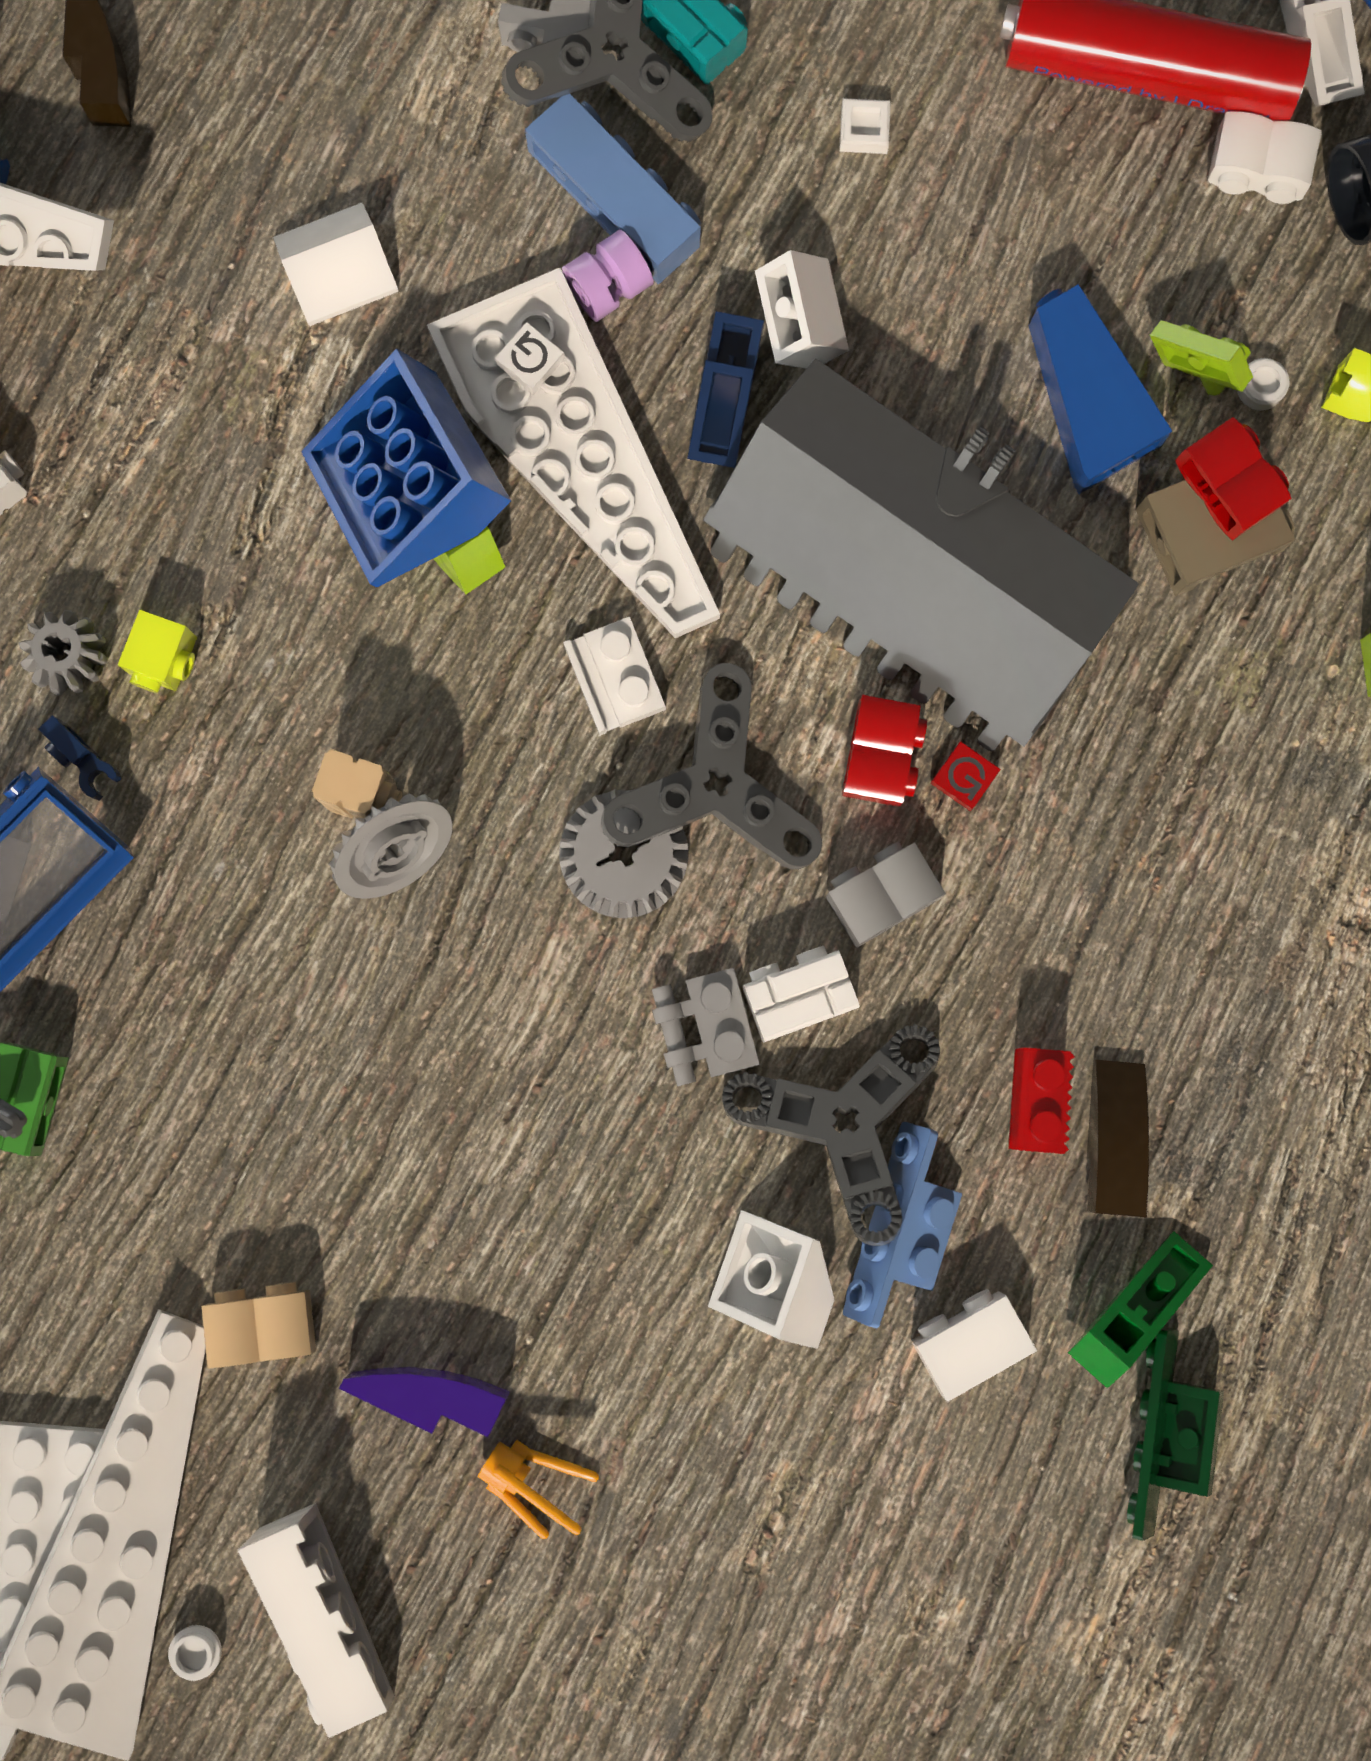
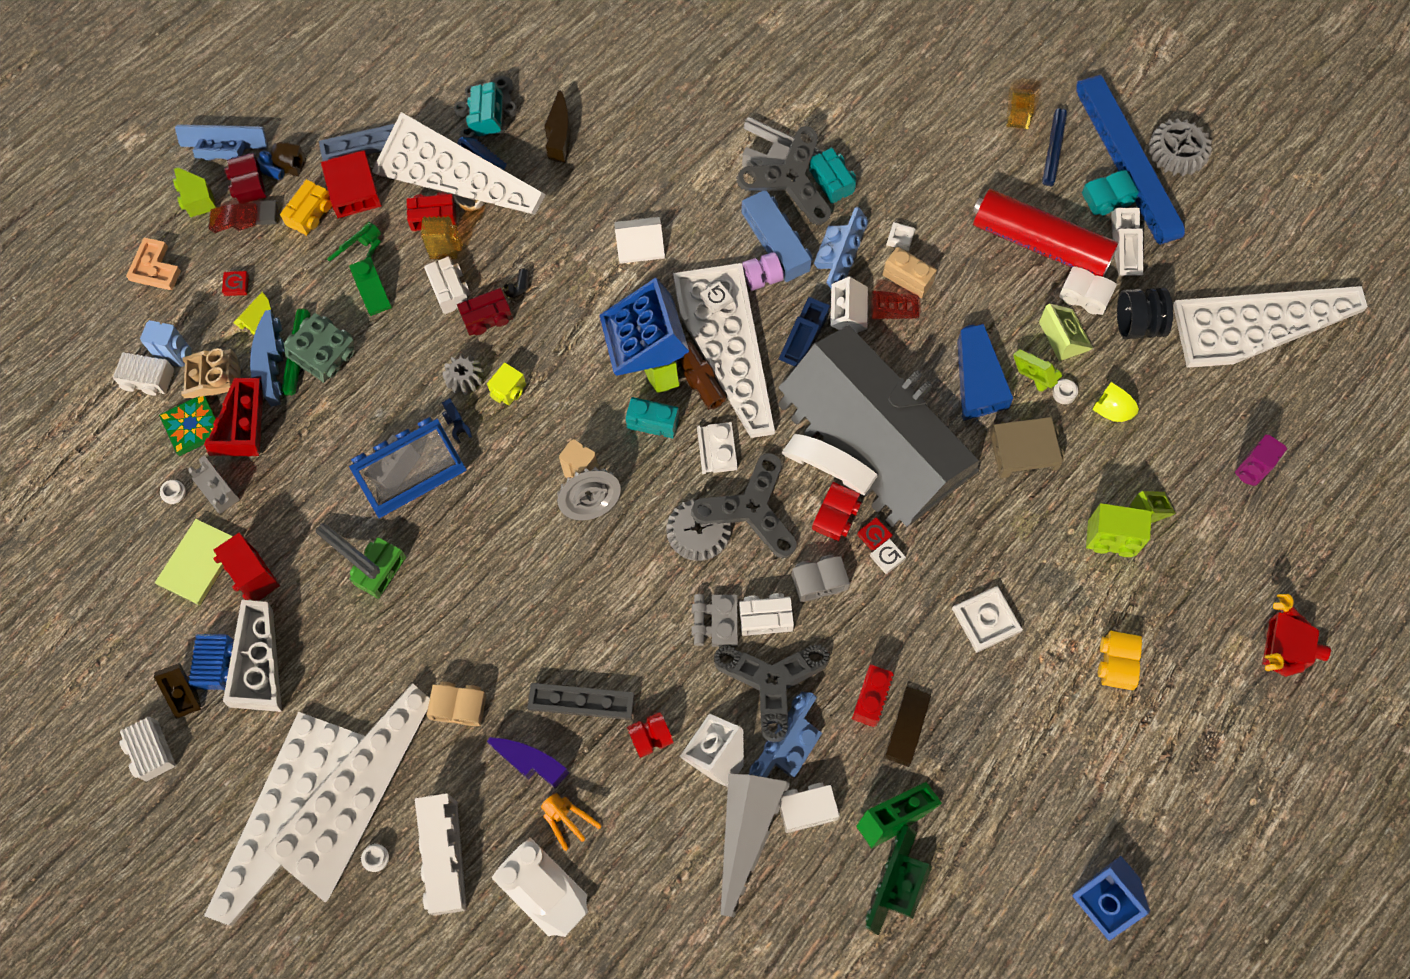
camera: 20 degrees right, 15 degrees down
(65, 506) = (485, 312): none -> dark red brick
(119, 432) = (519, 287): none -> black arm
(471, 648) = (652, 417): none -> teal brick
(493, 1255) = (581, 701): none -> dark grey plate
(526, 1624) = (542, 889): none -> white slope
(547, 539) = (701, 377): none -> reddish brown piece
(643, 1288) = (650, 734): none -> red wheel
(749, 182) = (840, 247): none -> medium blue bracket
(845, 653) = (830, 460): none -> white slope
(870, 1393) = (748, 816): none -> light grey wedge
(877, 303) = (893, 313): none -> clear red slope
(903, 204) = (909, 272): none -> tan brick
(1000, 813) = (887, 556): none -> white tile
(1215, 888) = (987, 619): none -> white tile
(1234, 477) = (1037, 424): red brick -> none
(1235, 258) = (1064, 332): none -> yellowish green slope

